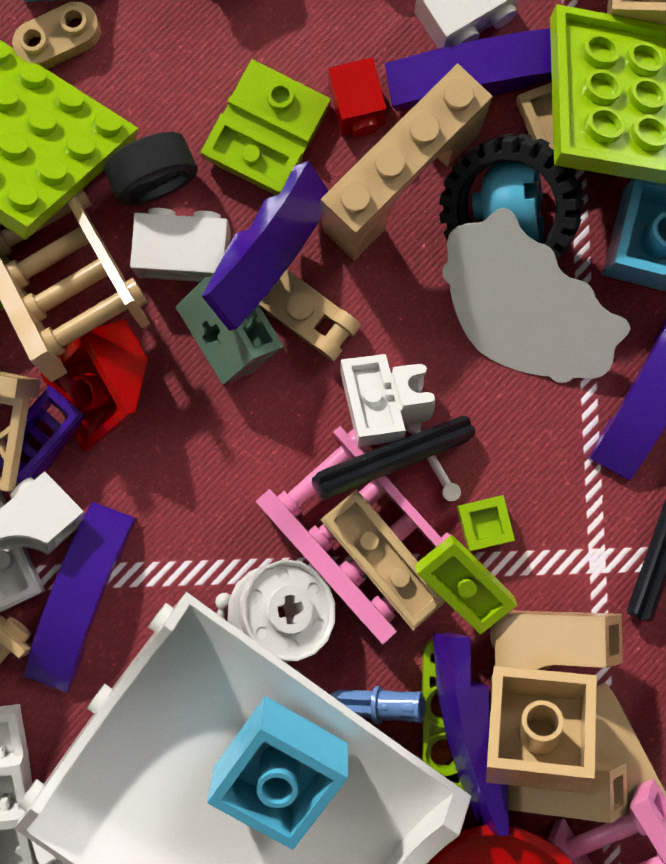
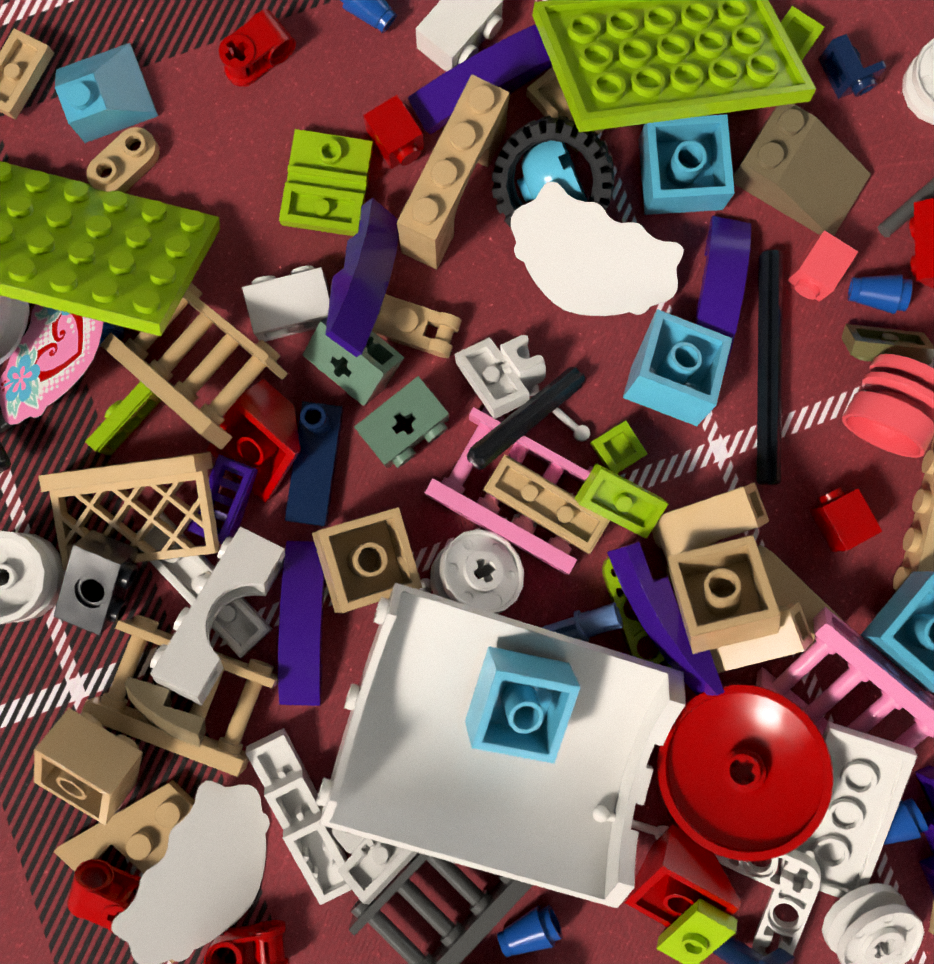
camera: 30 degrees left, 0 degrees up
(149, 428) = (315, 464): none -> dark blue piece
(150, 168) = (242, 246): black tyre -> none
(167, 554) = (366, 559): none -> tan brick
(233, 412) = (411, 402): none -> sand green brick
(581, 458) = (678, 368): none -> medium azure slope

